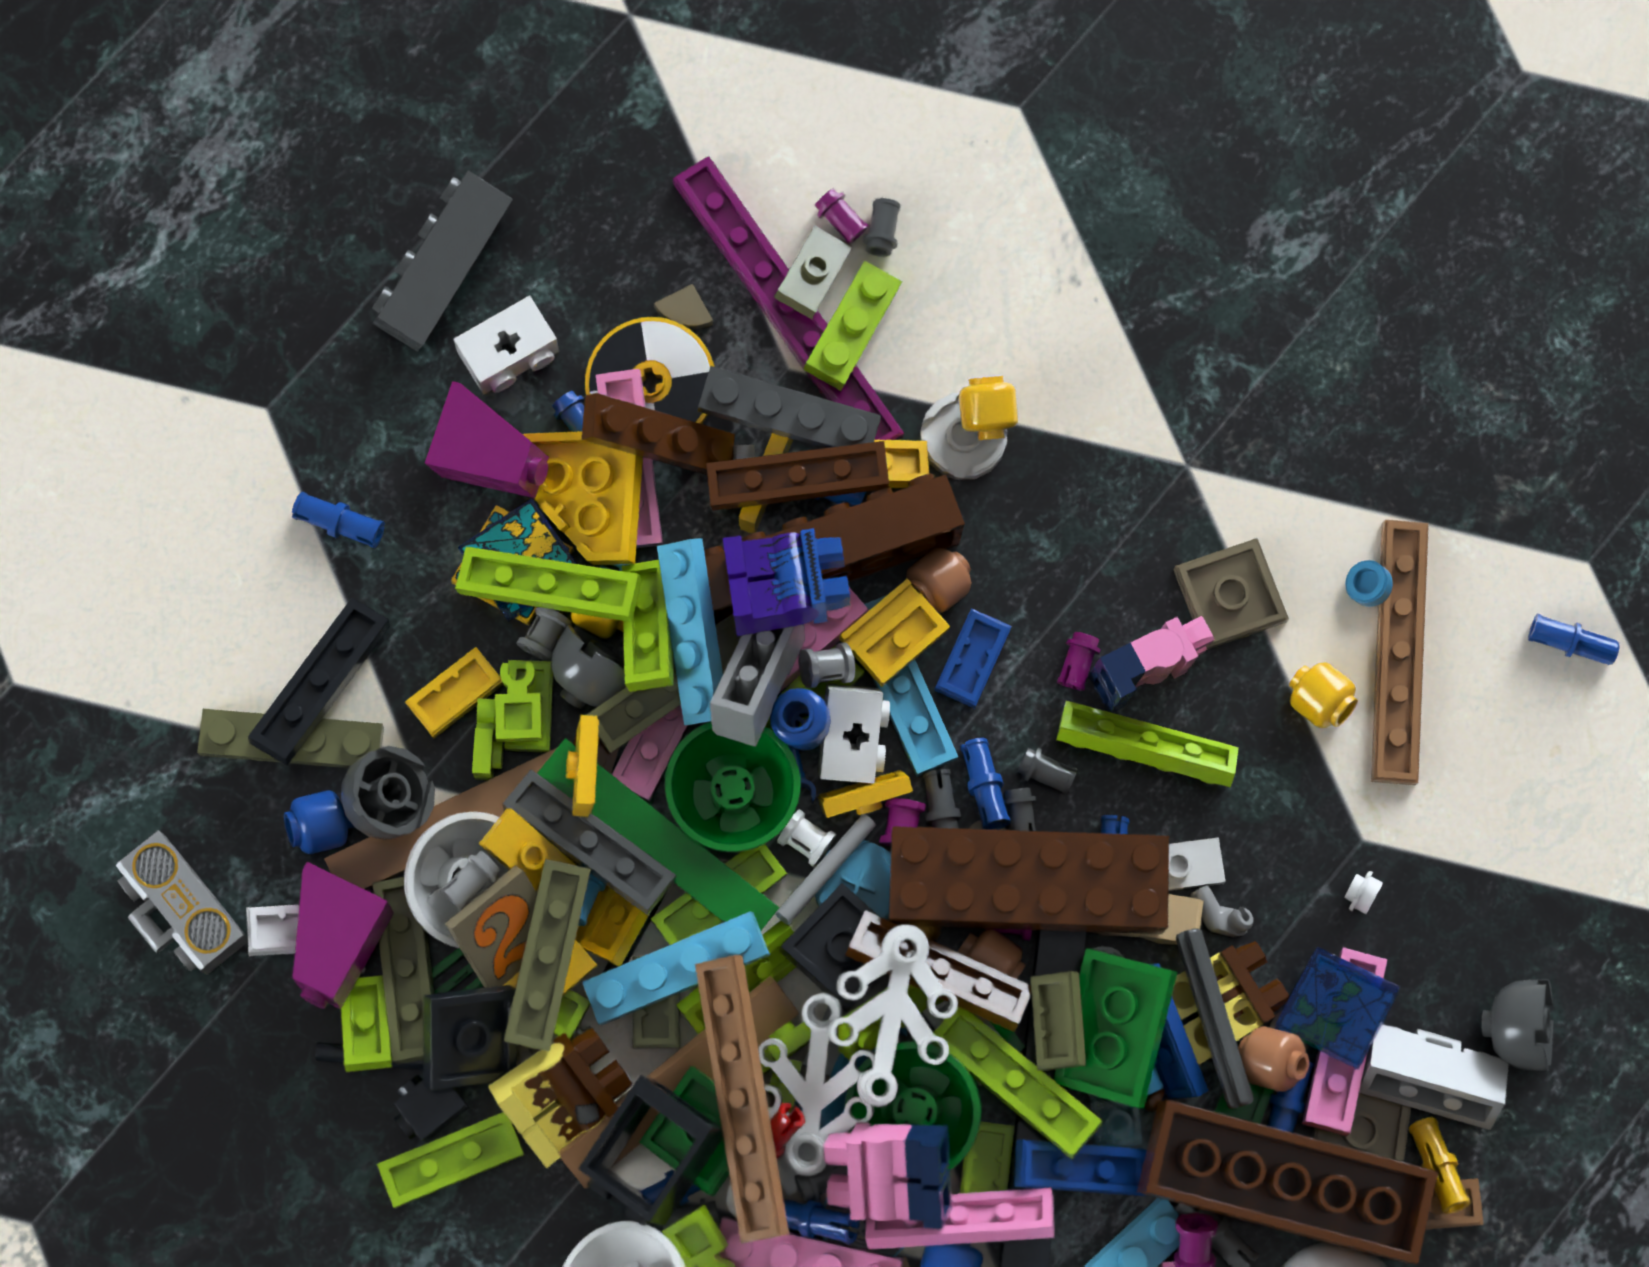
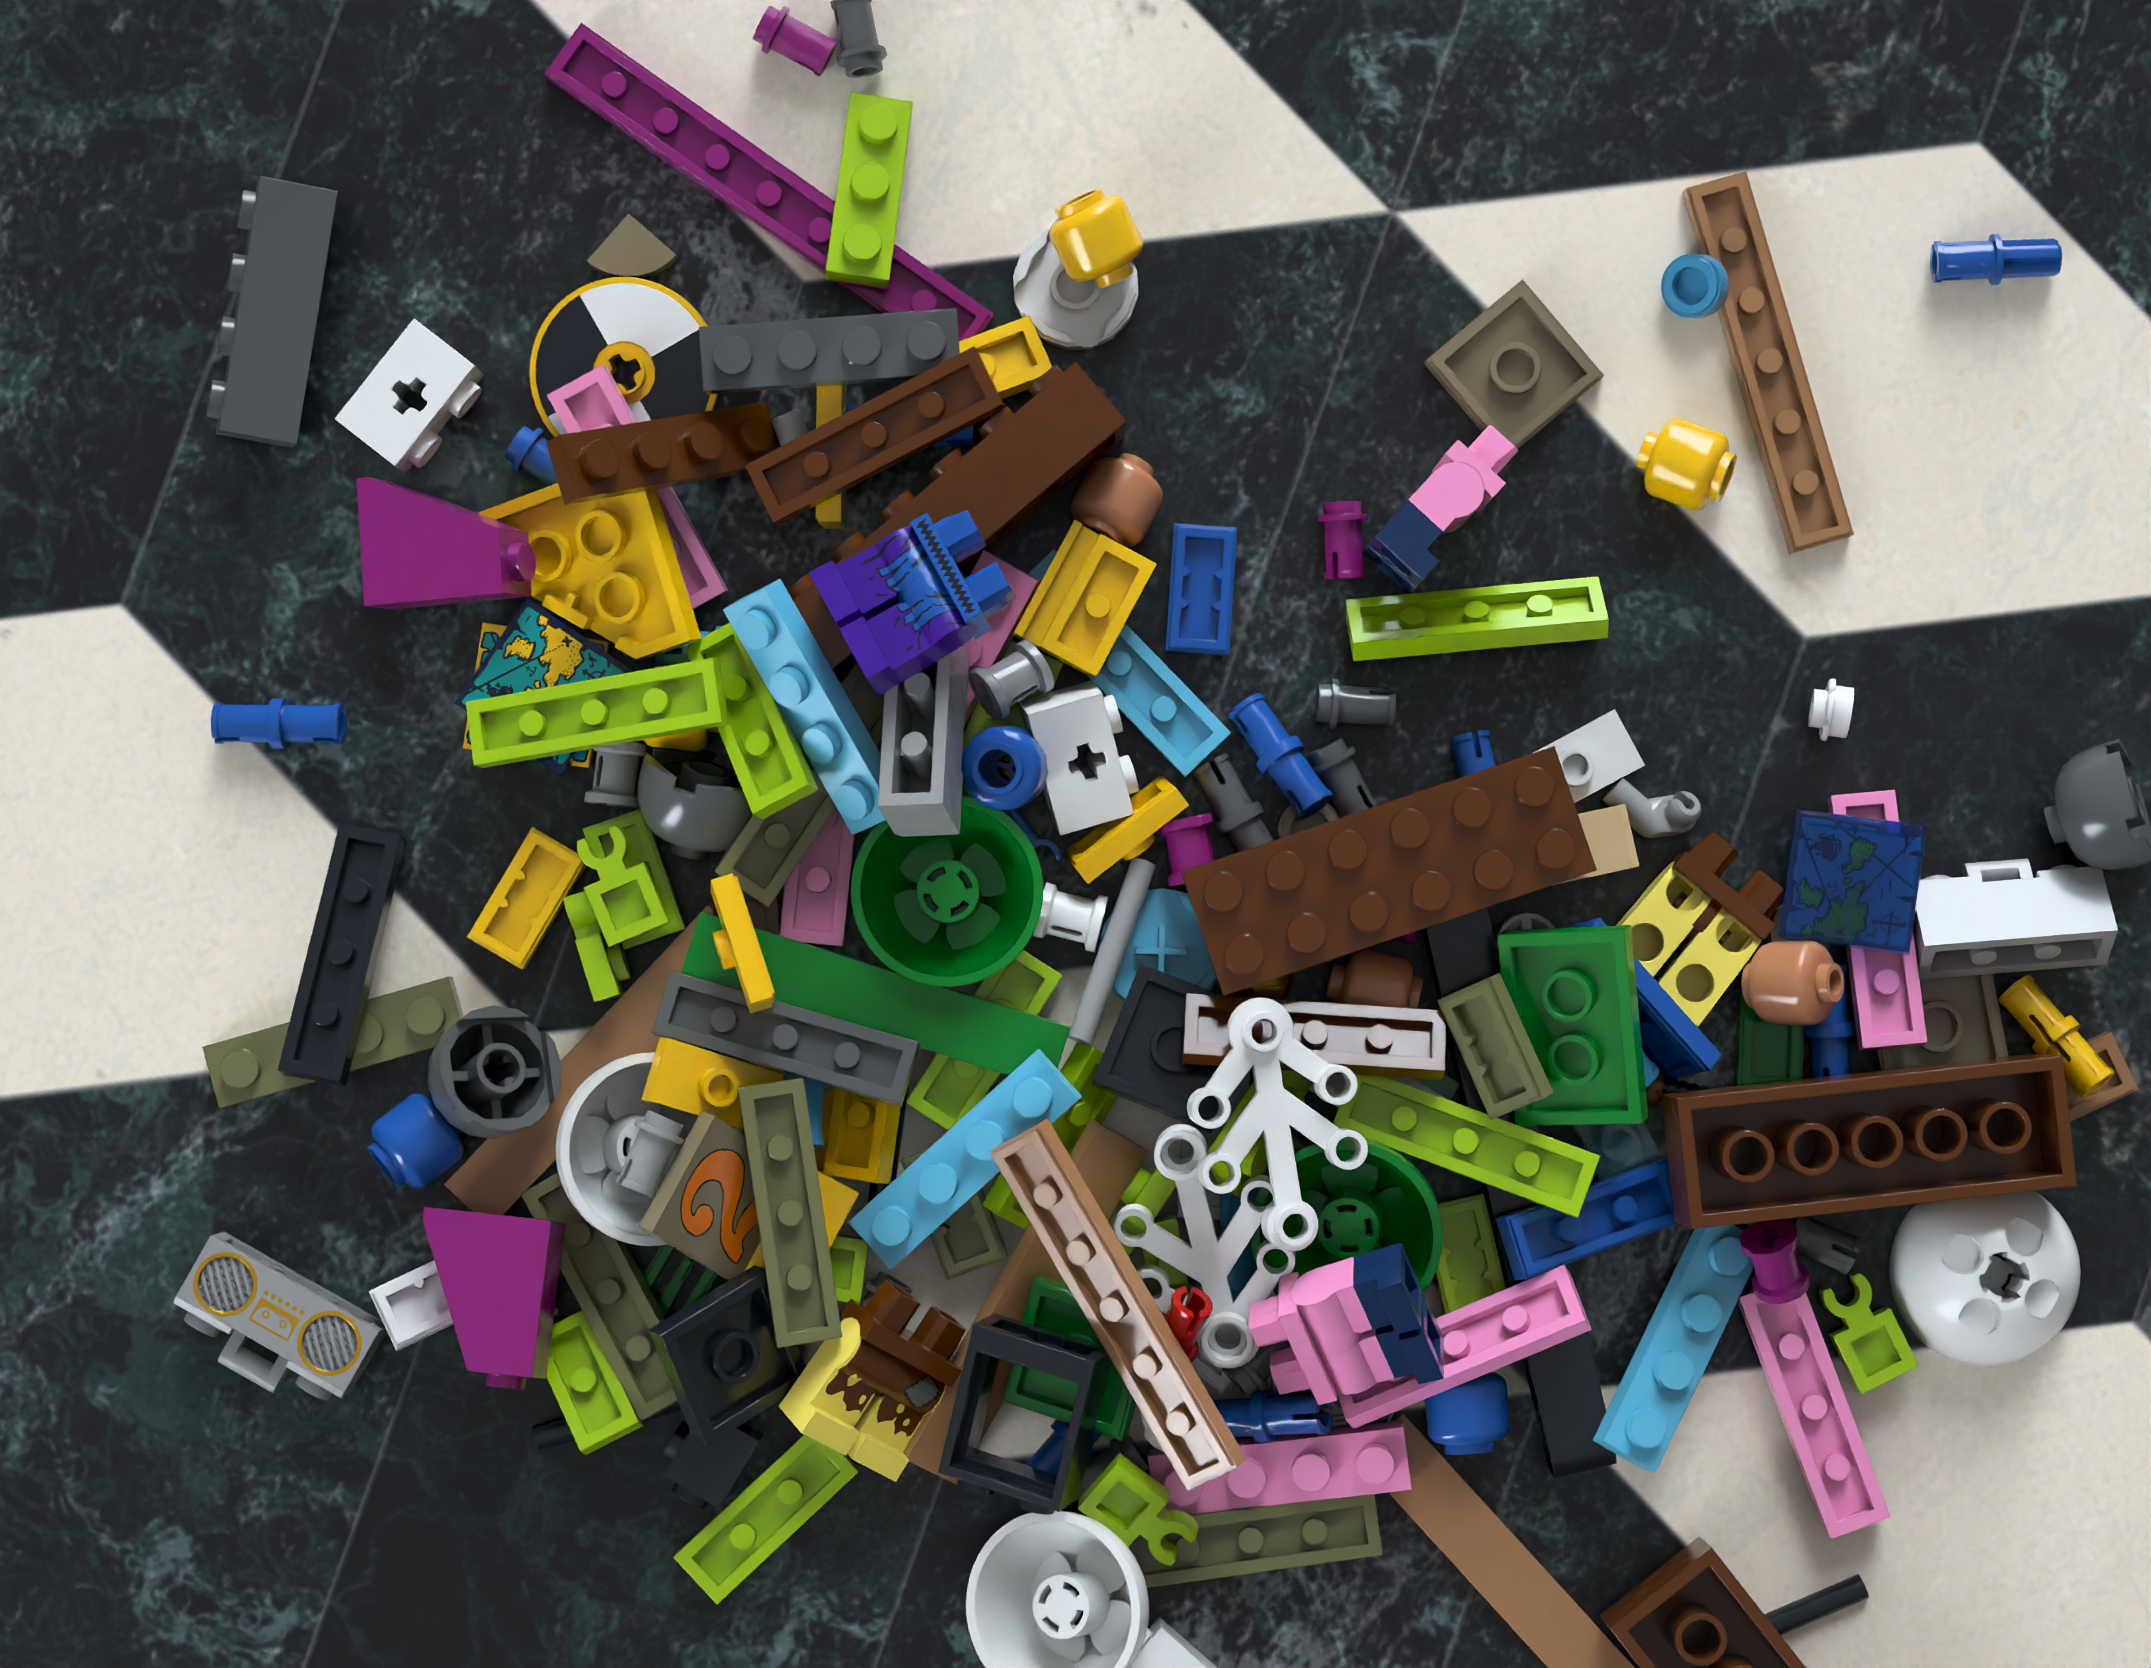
camera: 20 degrees left, 10 degrees up
(813, 272) = (786, 135): plate -> none
(1214, 1018) = (1697, 960): dark grey axle -> none

